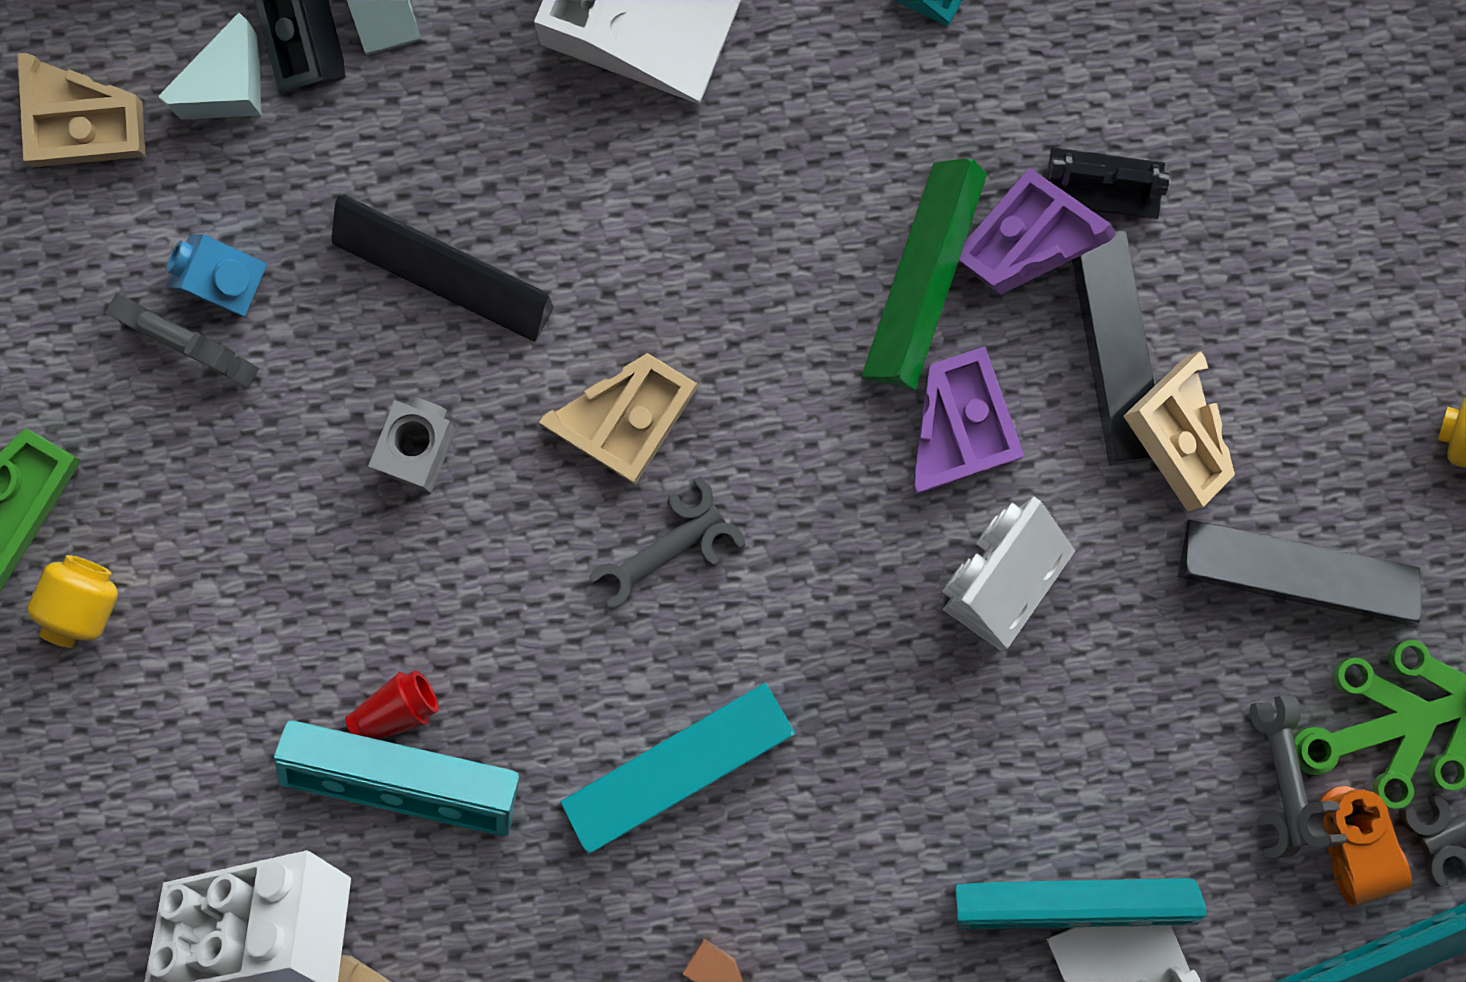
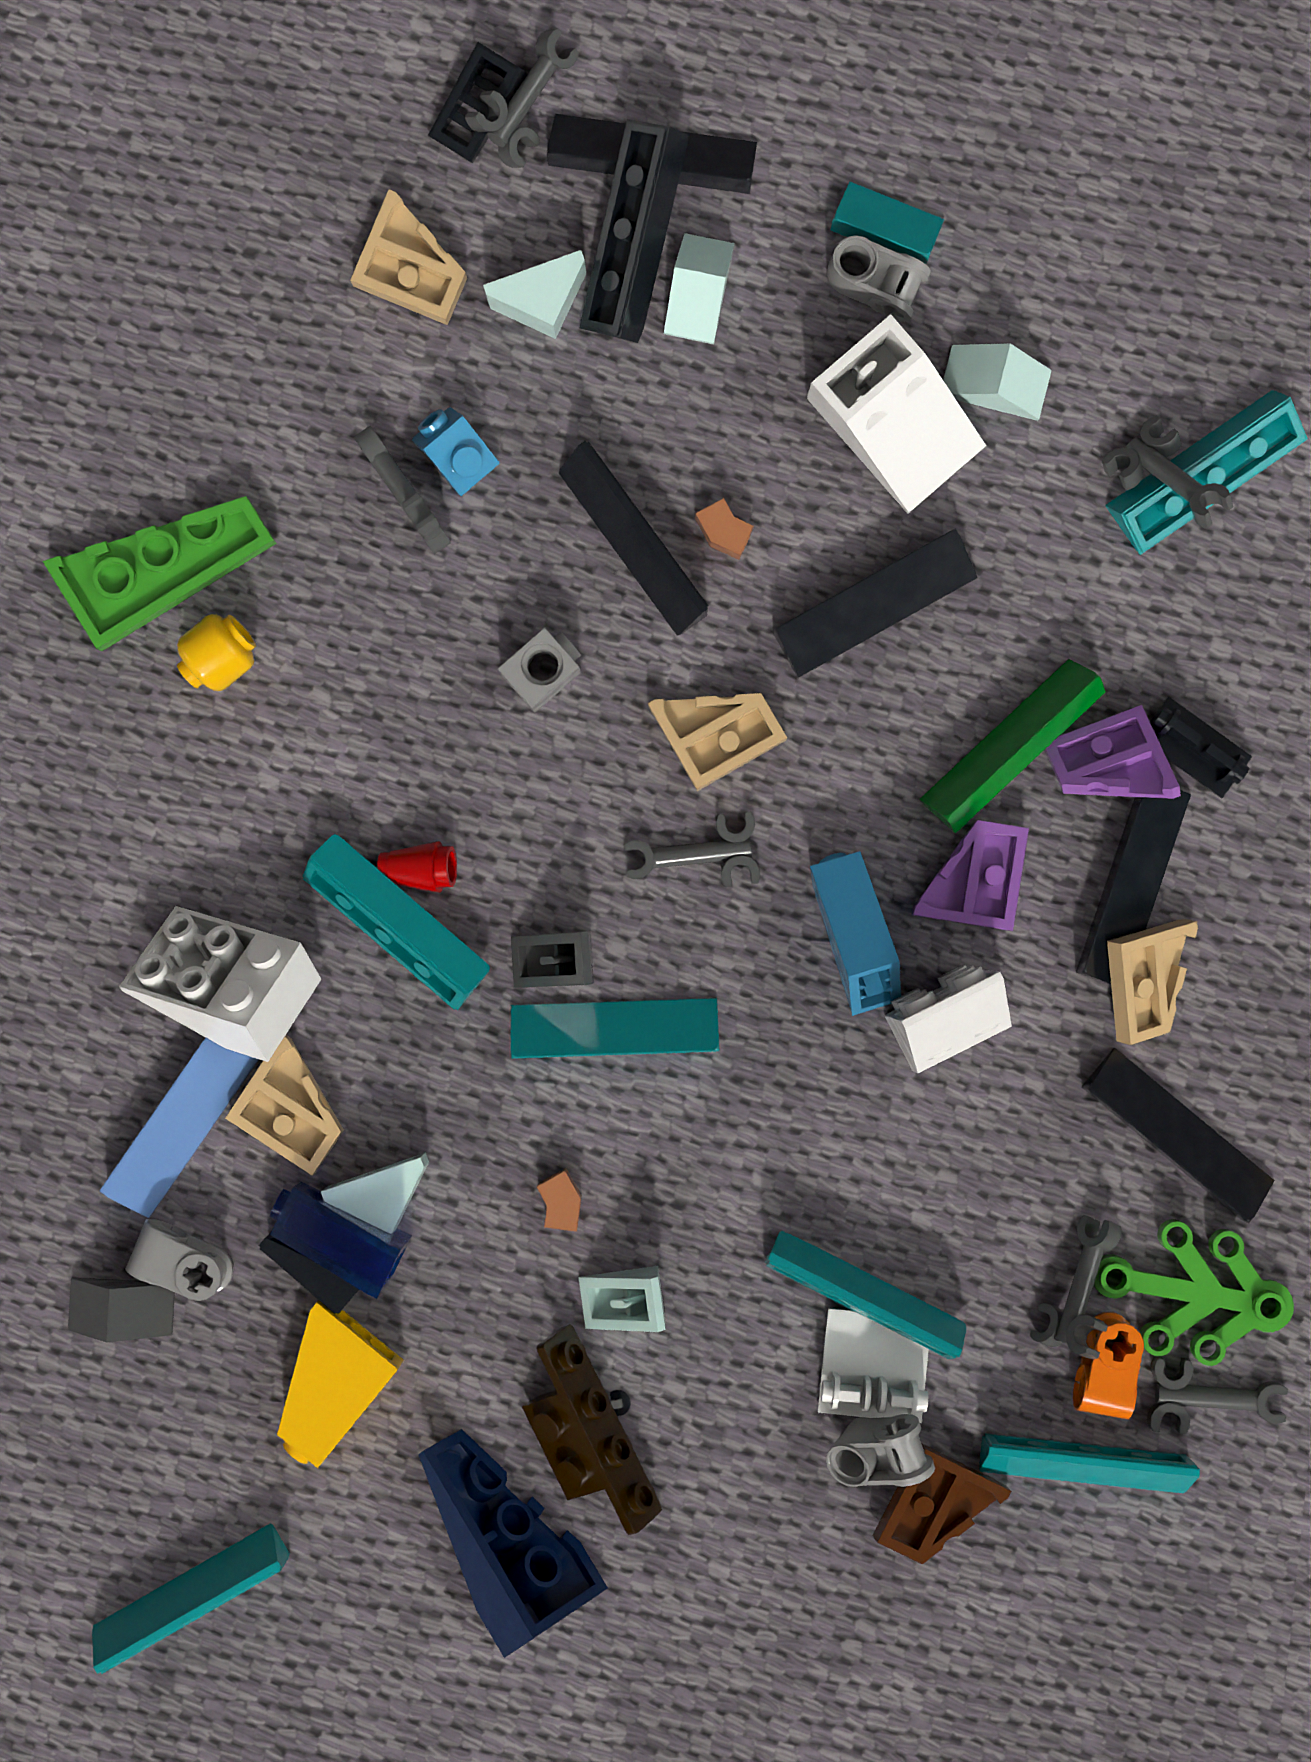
camera: 30 degrees right, 5 degrees up
(525, 213) = (723, 529): none -> nougat piece
(578, 731) = (552, 960): none -> dark grey slope
(713, 207) = (875, 603): none -> black slope
(870, 539) = (857, 932): none -> dark azure slope

